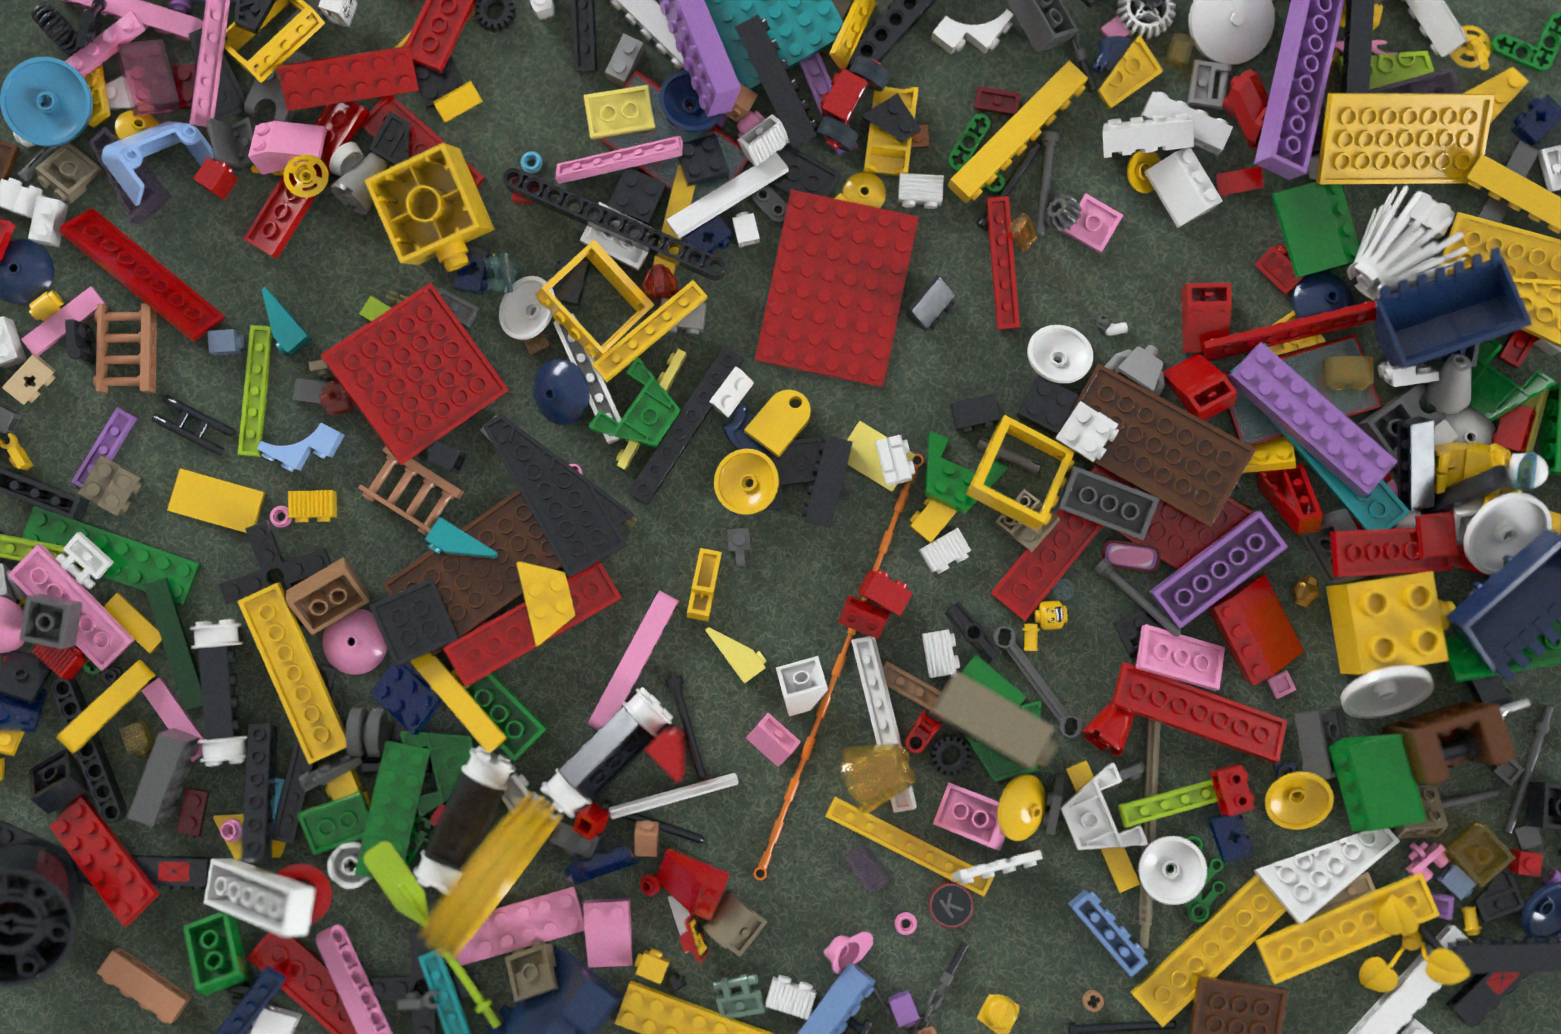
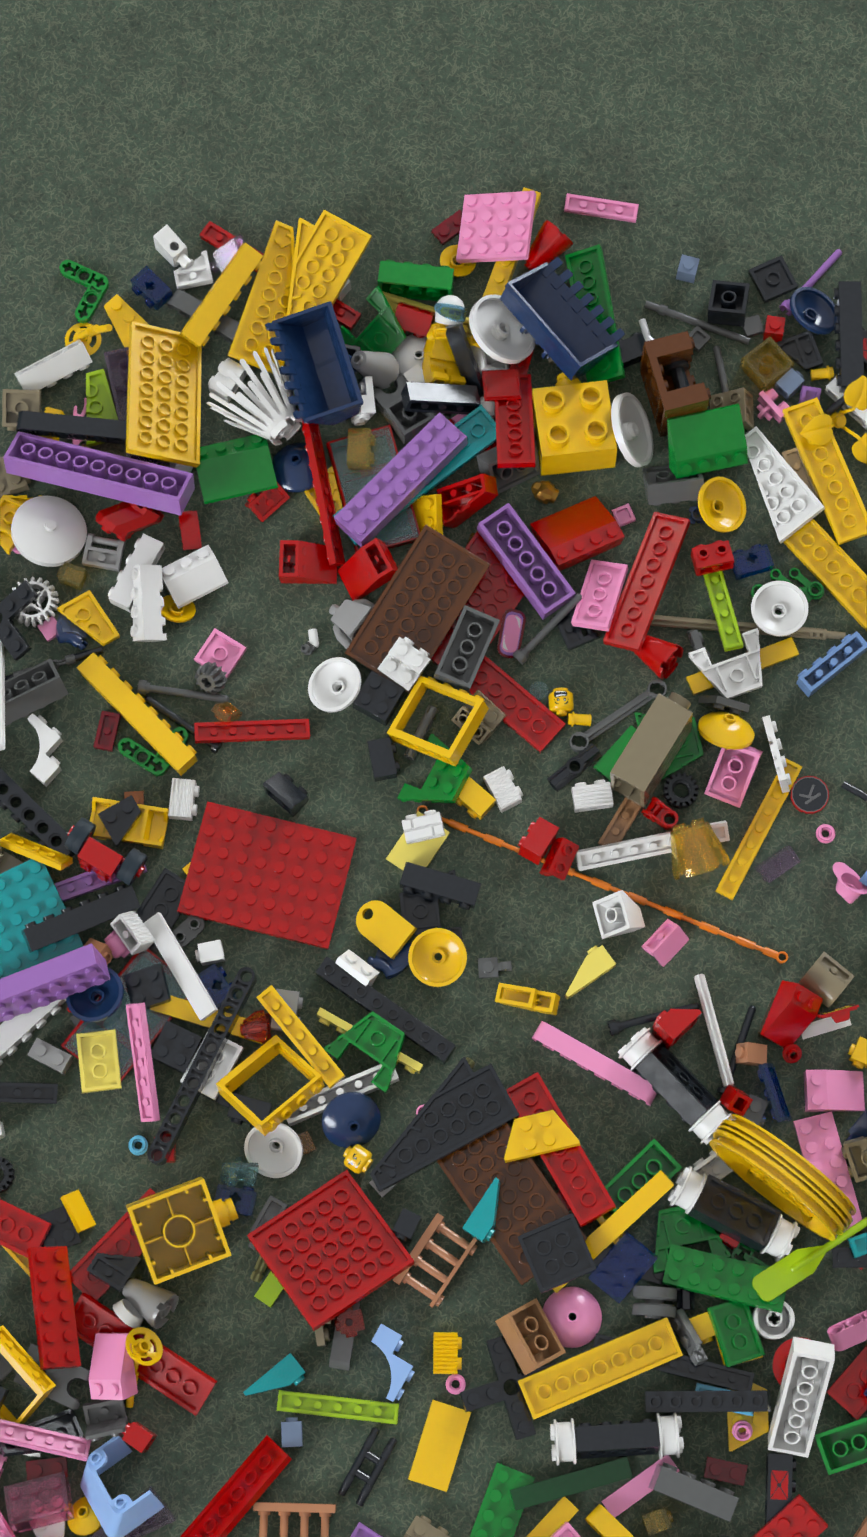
camera: 85 degrees left, 10 degrees down
(520, 401) = (357, 1158): none -> yellow head
(866, 180) = (170, 849): yellow dish -> none

